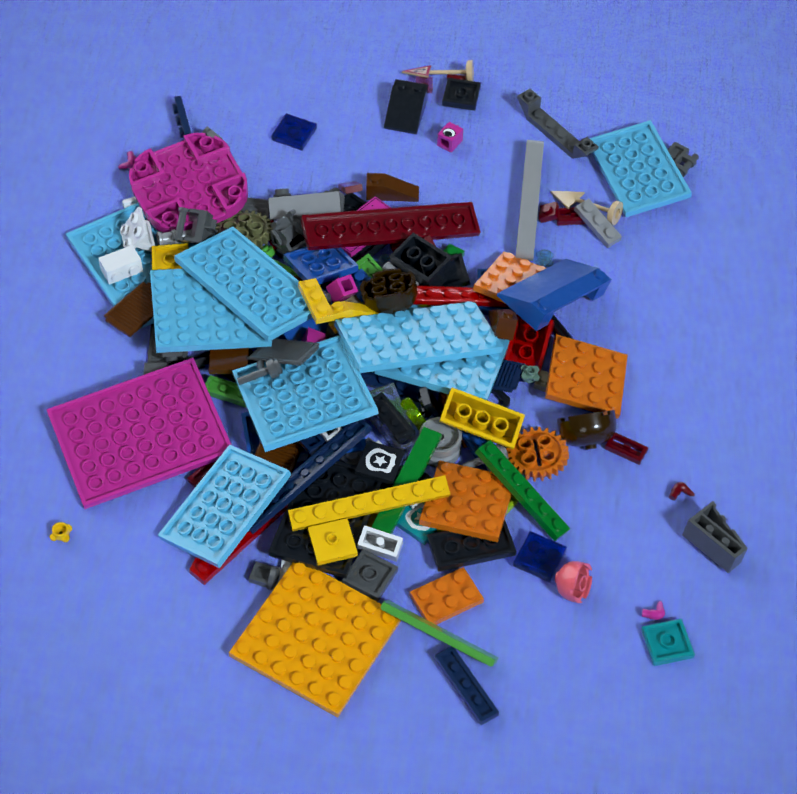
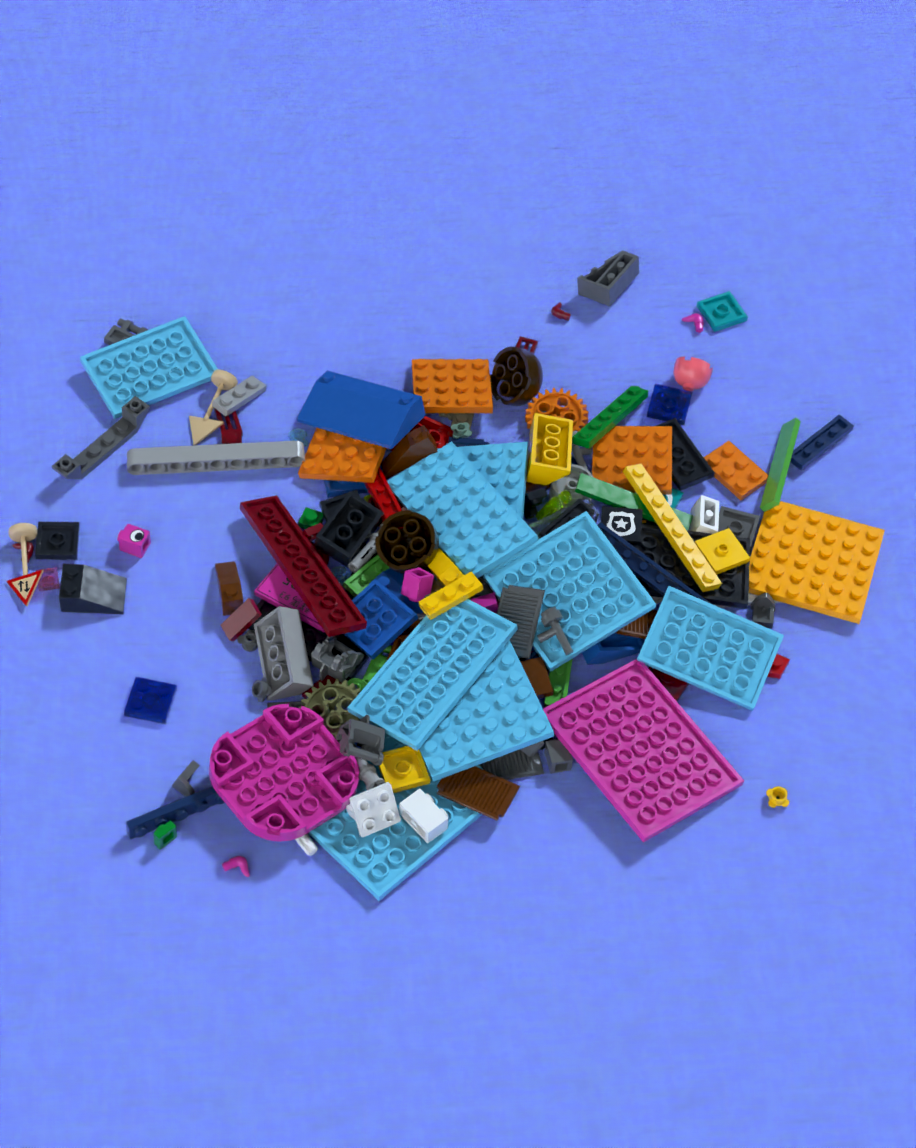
camera: 105 degrees left, 0 degrees up
(167, 121) = (164, 834): none -> green plate

